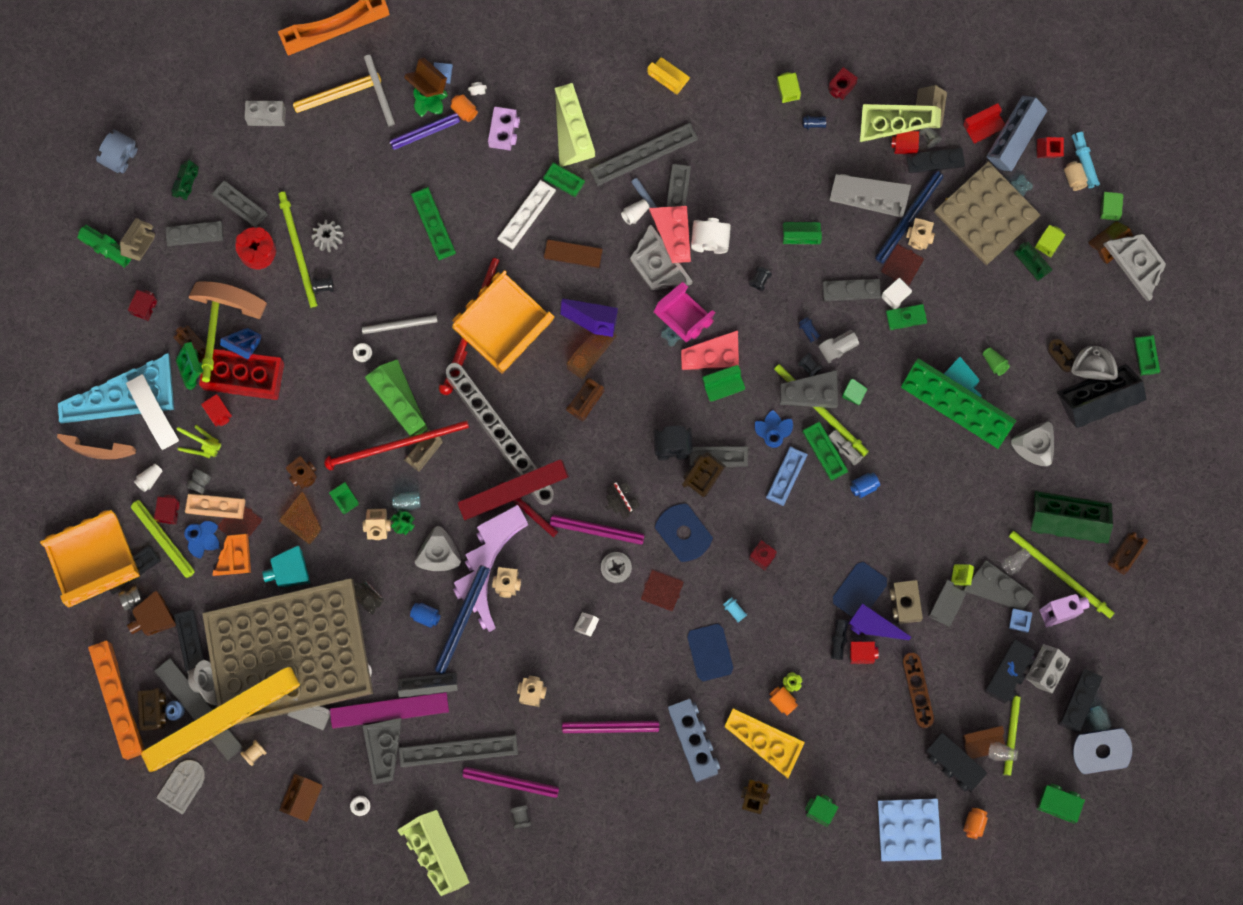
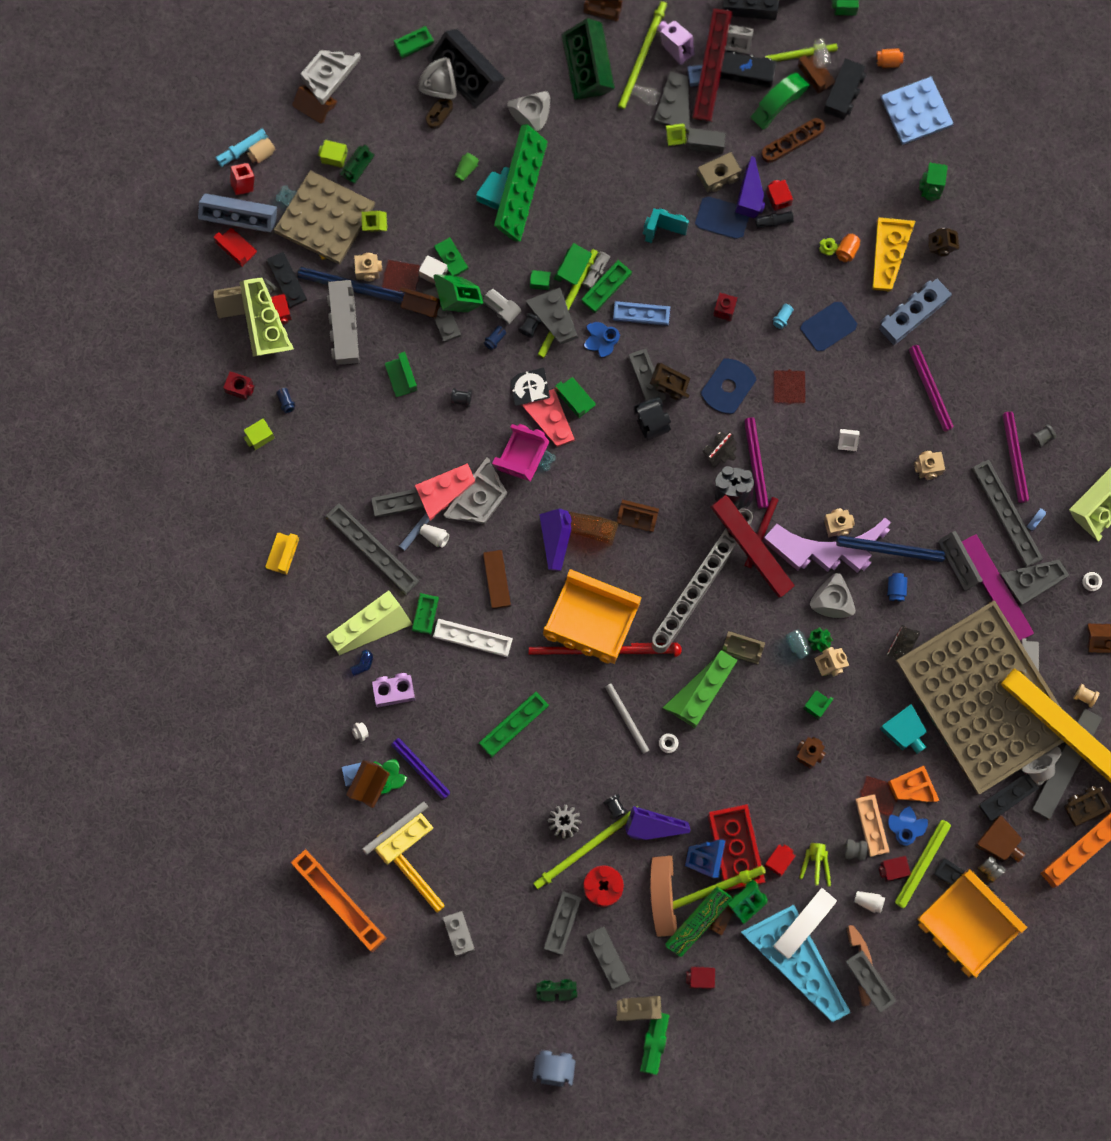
camera: 115 degrees left, 0 degrees up
(74, 444) = (871, 981): none -> dark grey plate
(178, 710) = (1073, 783): medium blue plate -> none
(189, 316) = (698, 921): none -> green tile
(291, 311) = (652, 825): none -> dark purple slope
(301, 519) = (853, 736): clear orange wing -> none
(330, 463) = (788, 731): red bar -> none
(367, 95) = (403, 839): none -> light yellow tile
(440, 775) = (1036, 519): none -> light blue tile
(464, 108) = (384, 737): orange brick -> none
(538, 113) = (364, 664): none -> clear blue arm
(579, 486) = (736, 484): none -> black brick
(607, 564) = (785, 424): light grey gear -> none
(710, 236) = (437, 452): white brick -> none
(748, 345) = (530, 386): none -> sticker
(856, 426) = (573, 264): none -> green panel
(865, 305) = (457, 293): none -> green slope
(865, 485) = (625, 241): blue brick -> none
(868, 270) = (420, 302): none -> reddish brown panel
(868, 511) = (665, 220): none -> teal bracket
(965, 254) = (374, 221): none -> lime brick
(966, 691) = (782, 94): none -> green arch
(1023, 633) = (712, 64): none -> dark red tile
(1111, 206) = (280, 111): bright green panel -> none

